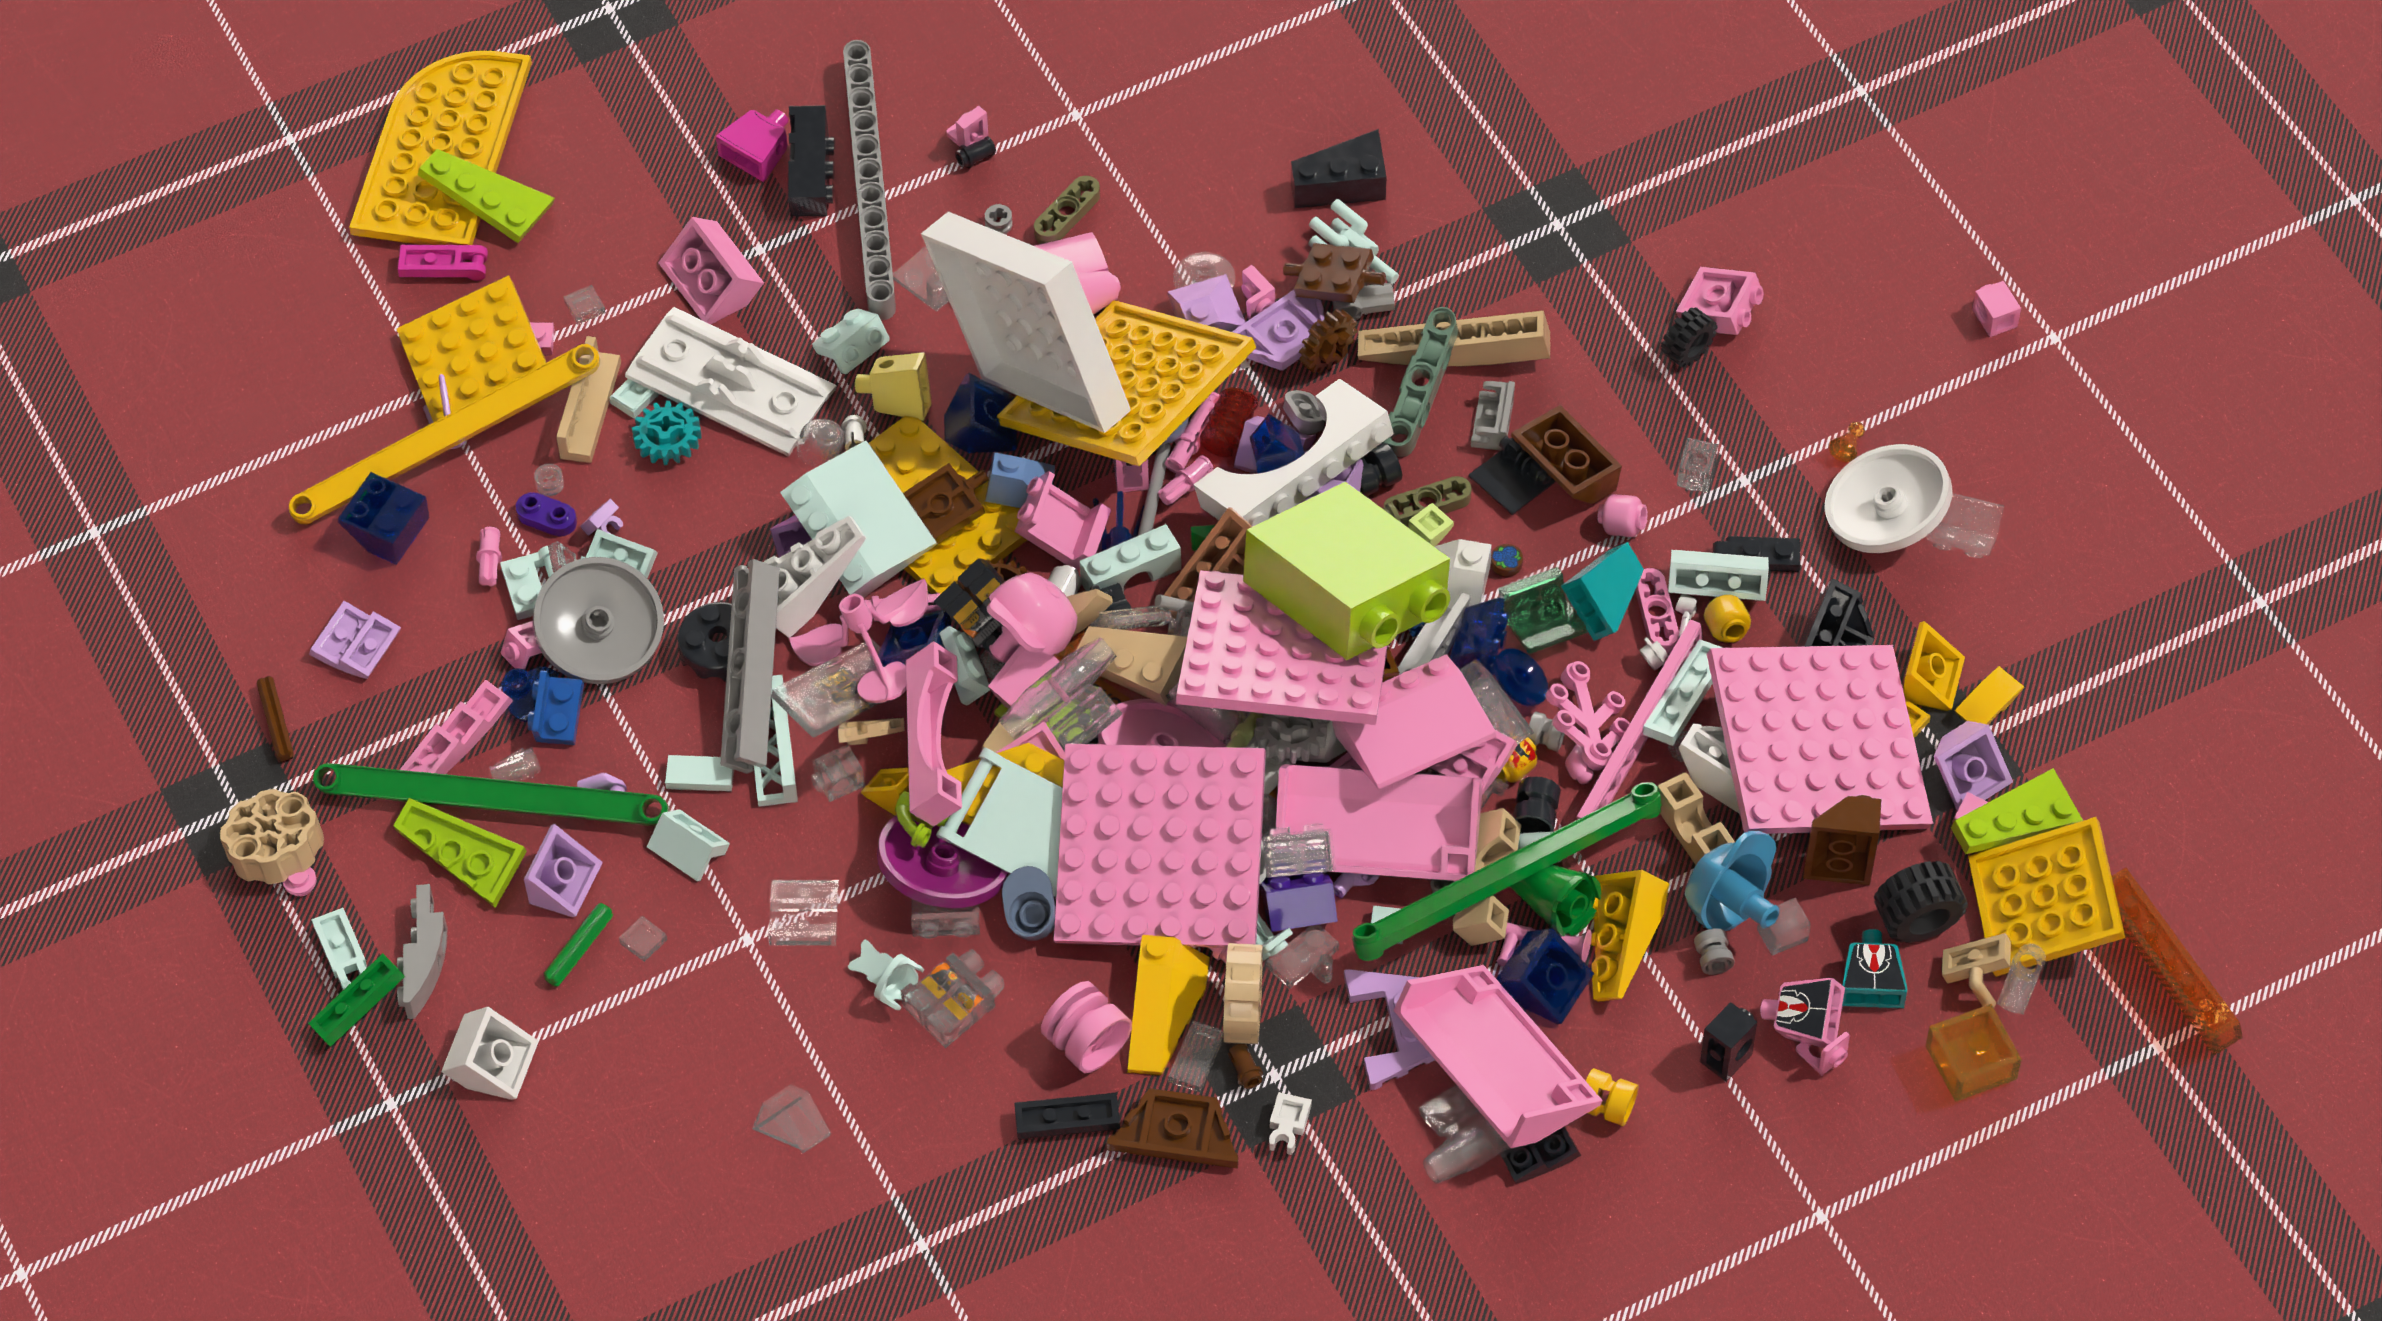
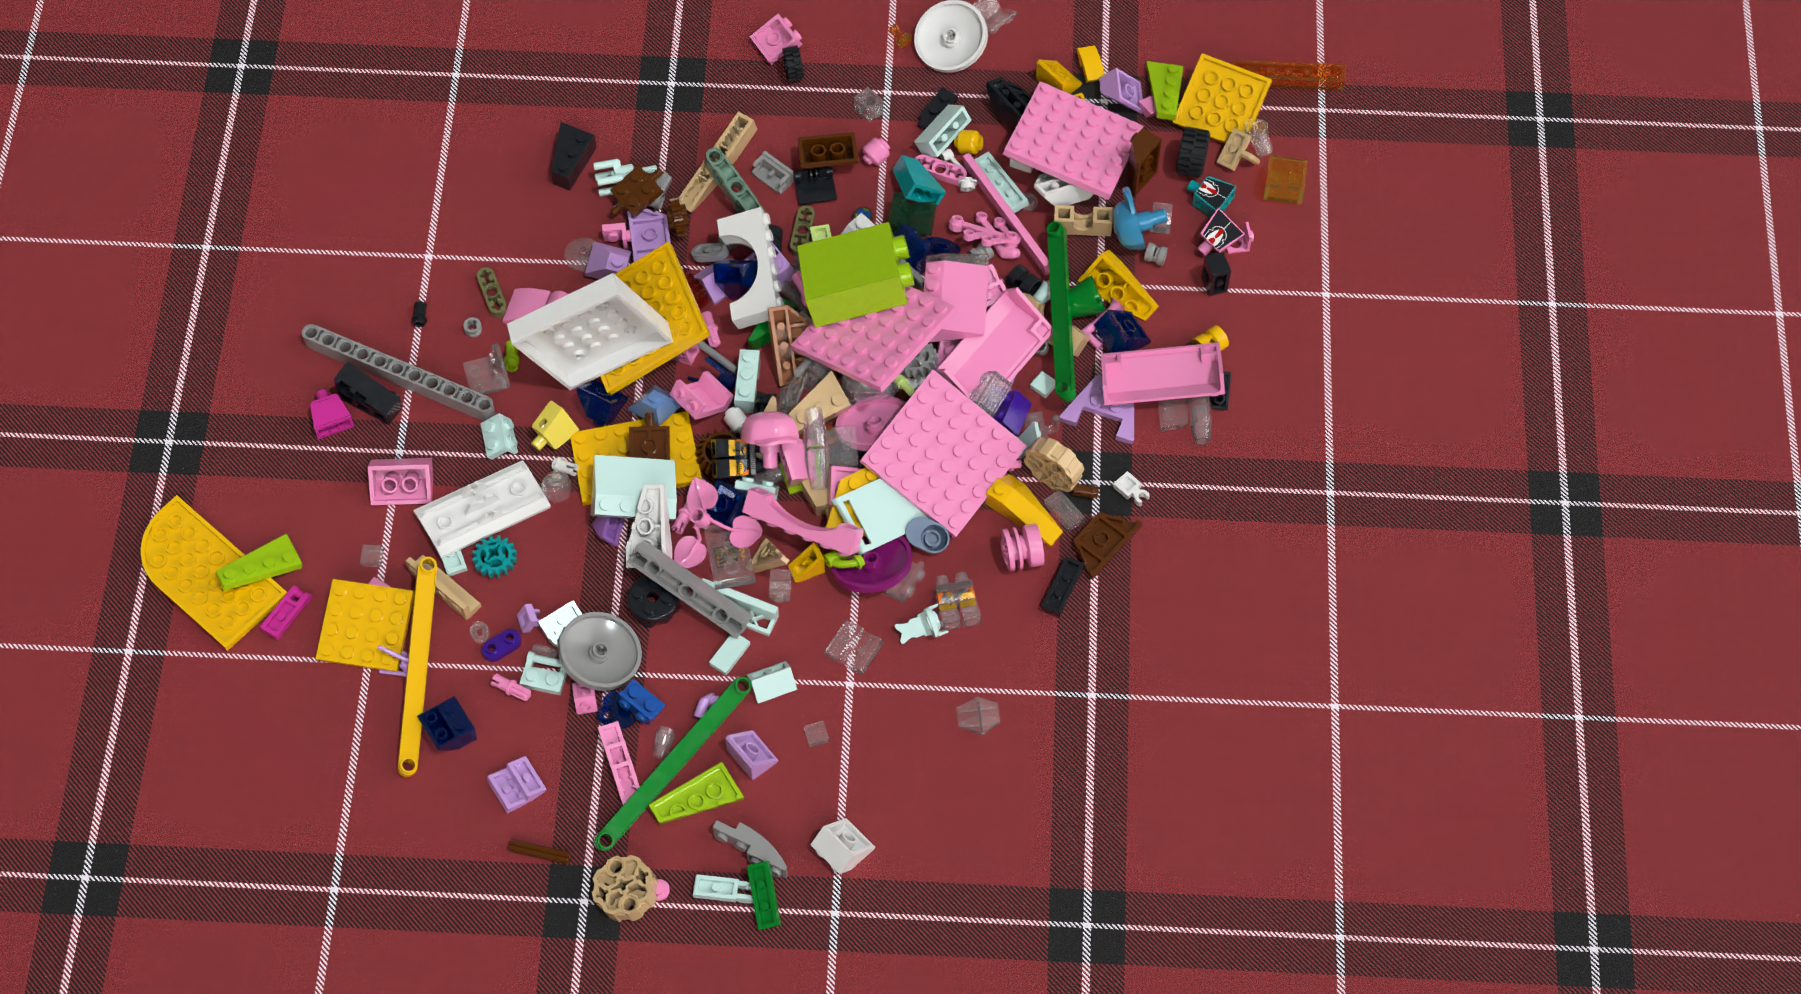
camera: 60 degrees left, 5 degrees up
(578, 944) = (799, 767): green axle -> none
(969, 128) = (403, 309): bright pink bracket -> none

